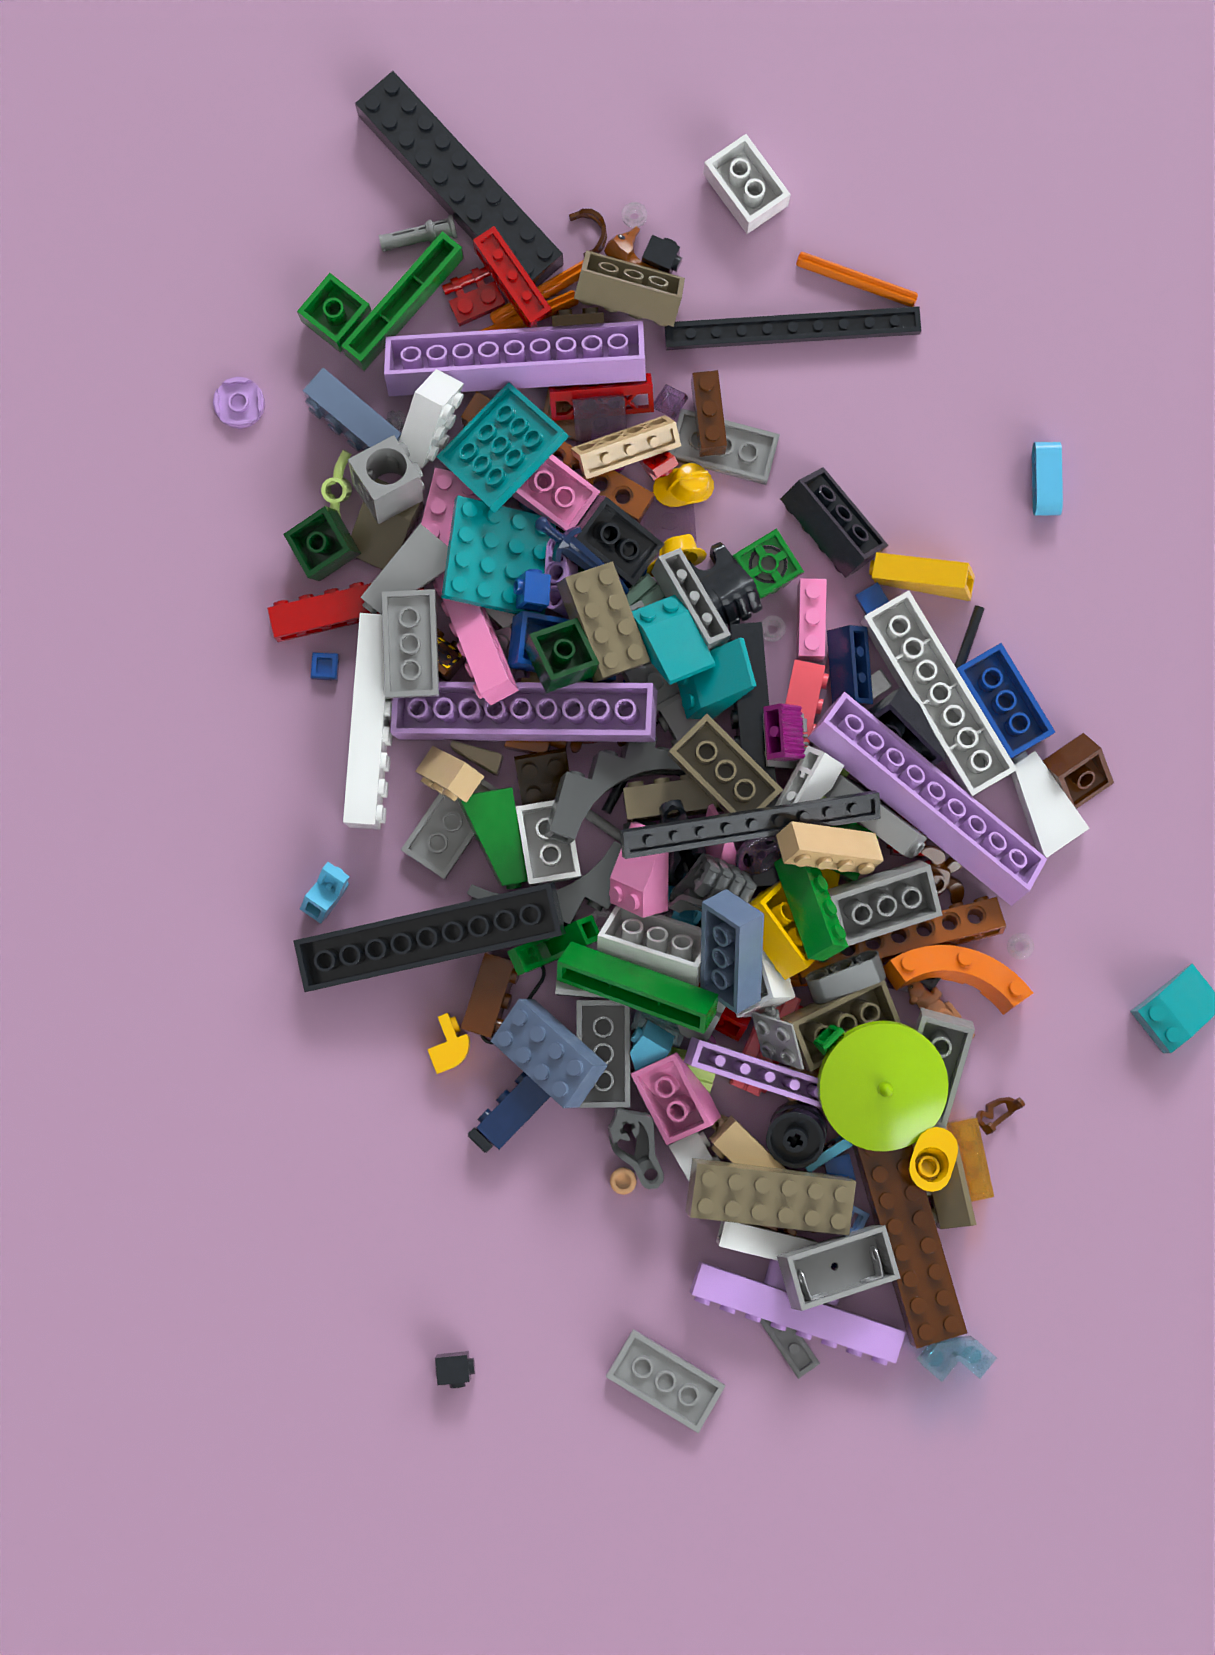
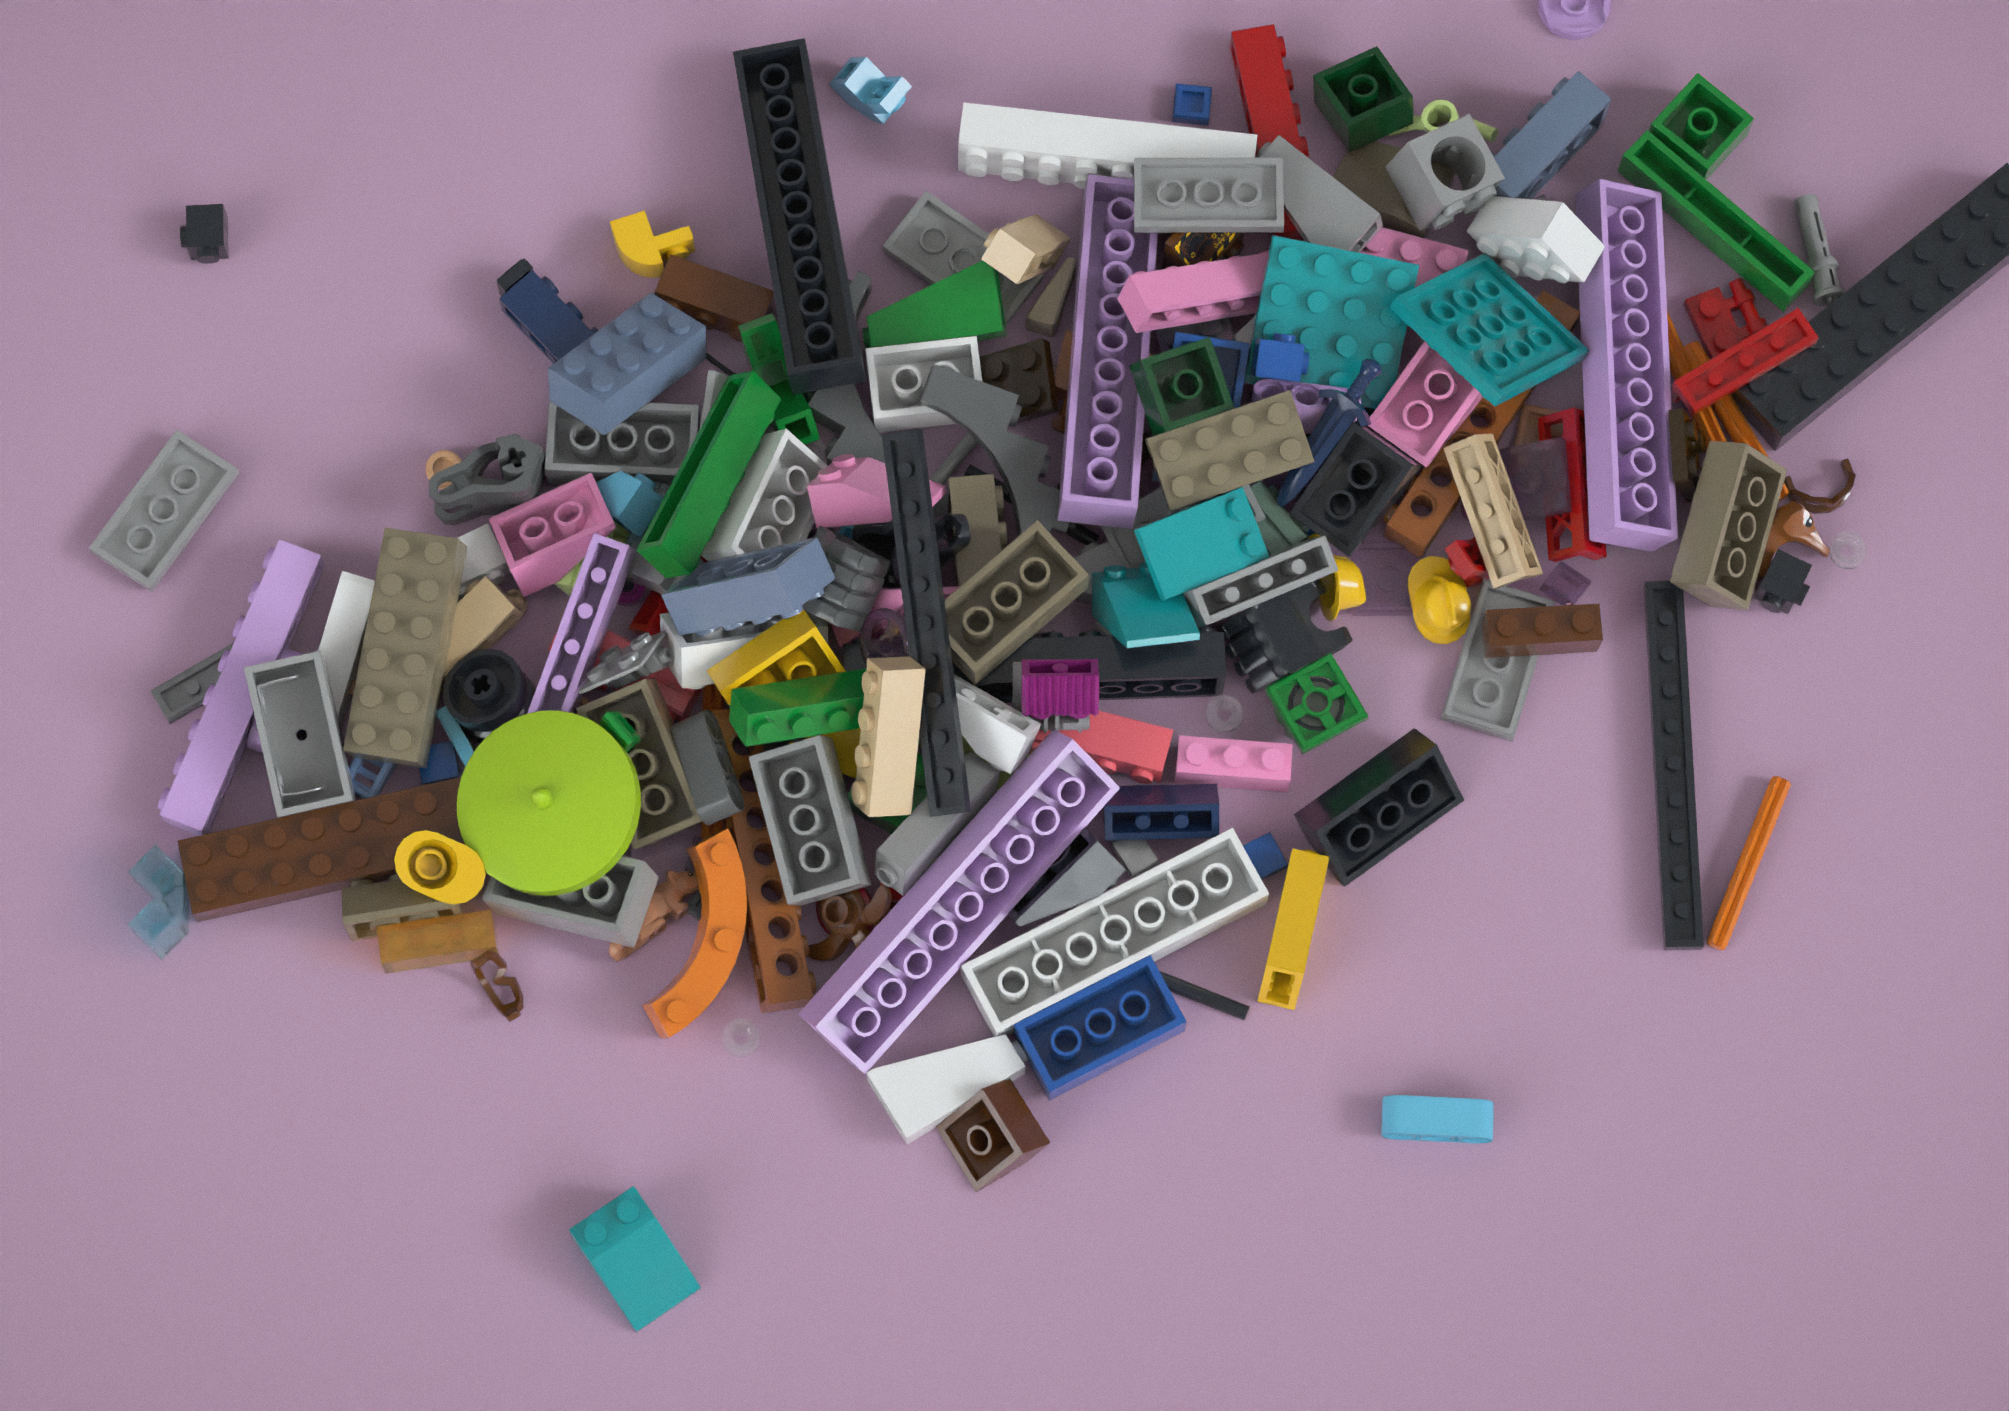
camera: 90 degrees right, 10 degrees down
(746, 184) = (1890, 704): white brick -> none

